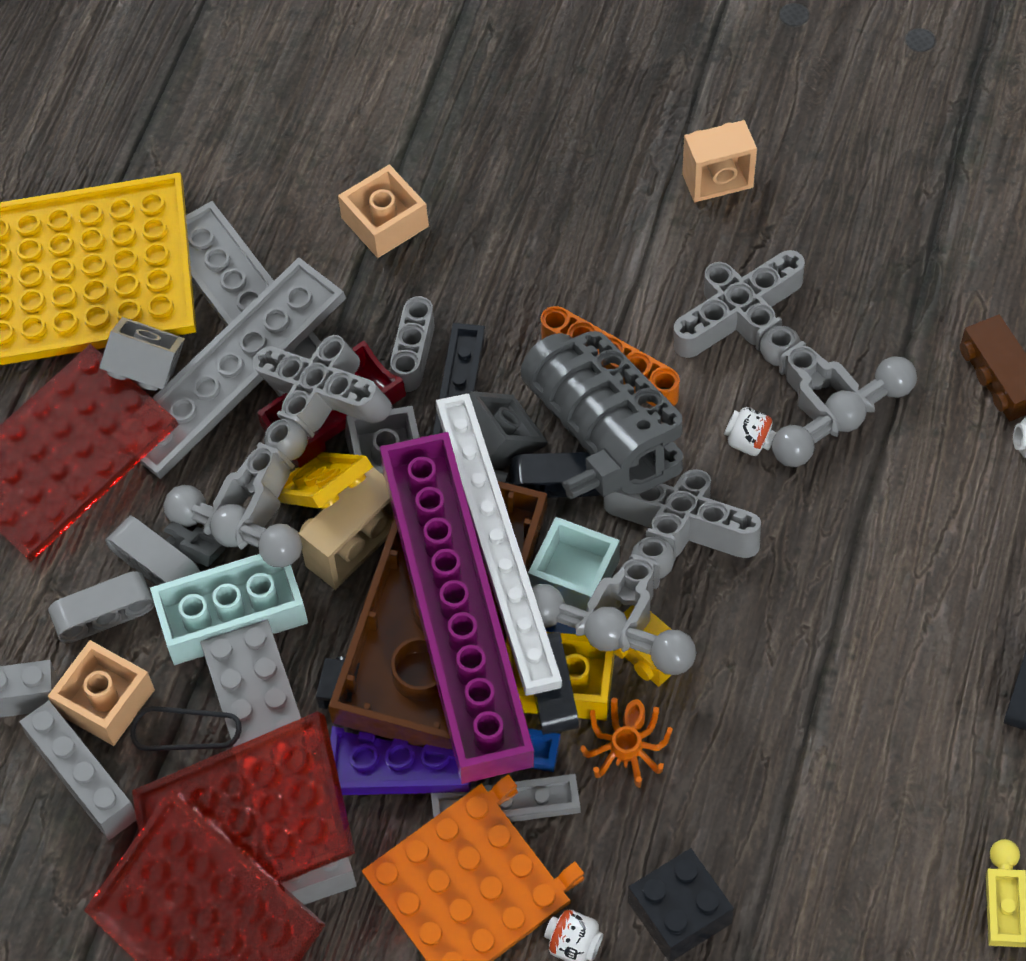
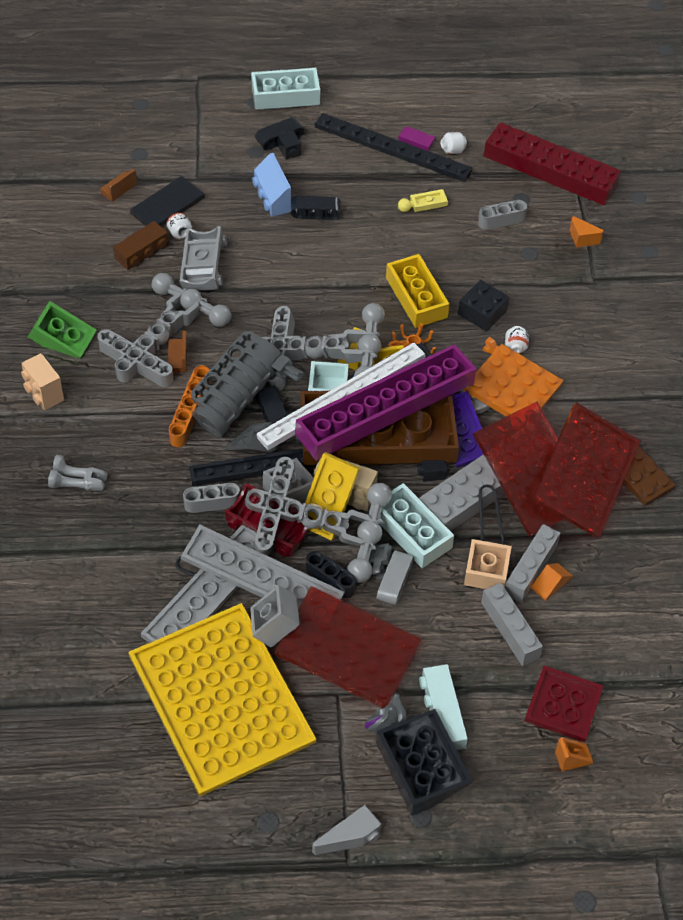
camera: 115 degrees left, 5 degrees down
(41, 800) = (551, 580): none -> orange slope
(101, 607) = (435, 590): light grey beam -> none
(207, 452) = (327, 566): none -> black beam
(383, 211) = (124, 535): light nougat brick -> none
(530, 154) = (92, 481): none -> light grey piece
(731, 371) = (178, 353): none -> dark orange panel
(750, 431) = (216, 336): white head -> none
(751, 788) = (417, 290): none -> yellow brick
(830, 214) = (61, 331): none -> bright green slope
(941, 447) = (201, 259): none -> light grey piece

